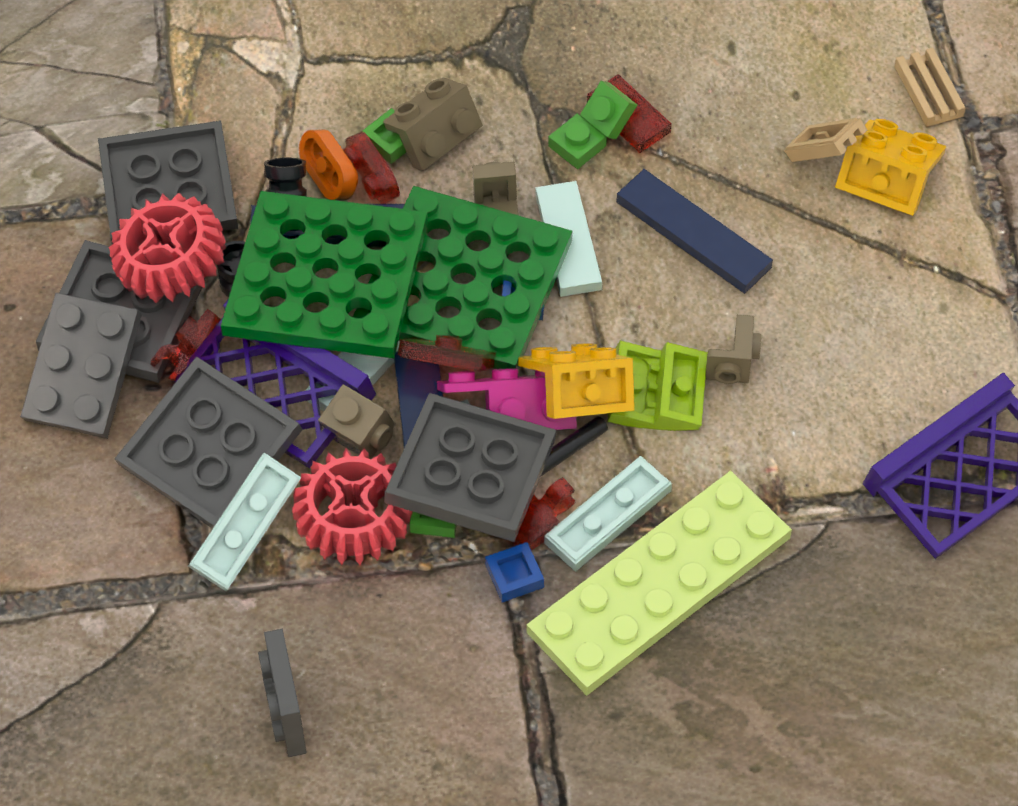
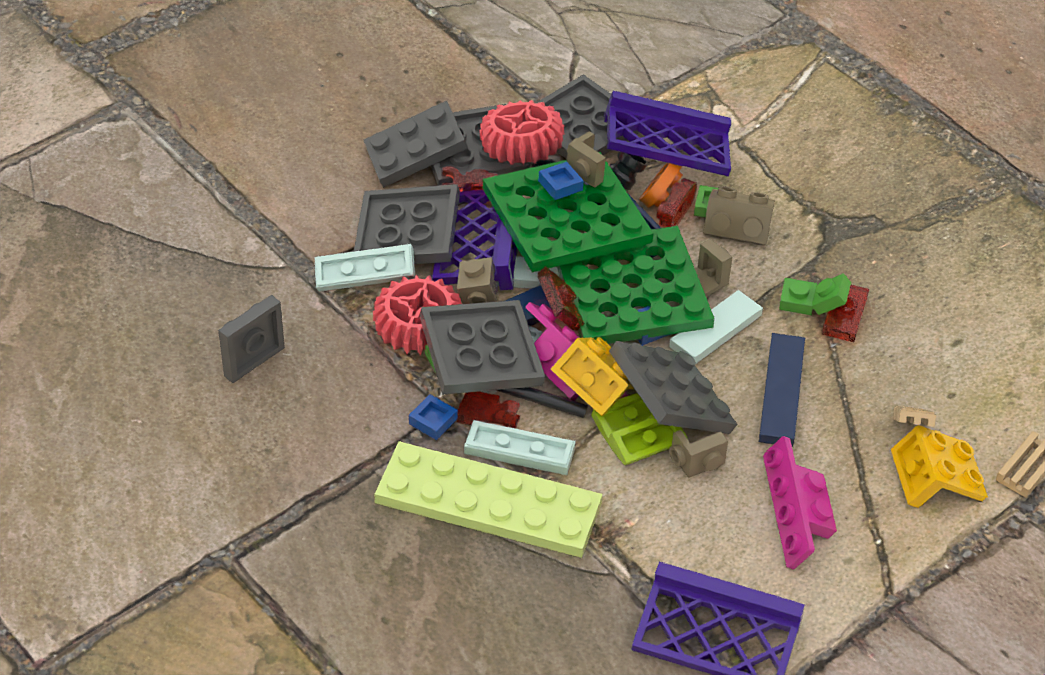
camera: 55 degrees right, 10 degrees down
(258, 98) = (679, 124): none -> dark purple fence
(288, 210) = (586, 160): none -> dark tan bracket
(300, 250) = (560, 180): none -> blue plate
(649, 322) = (673, 387): none -> dark grey plate
(855, 306) = (798, 501): none -> dark pink bracket

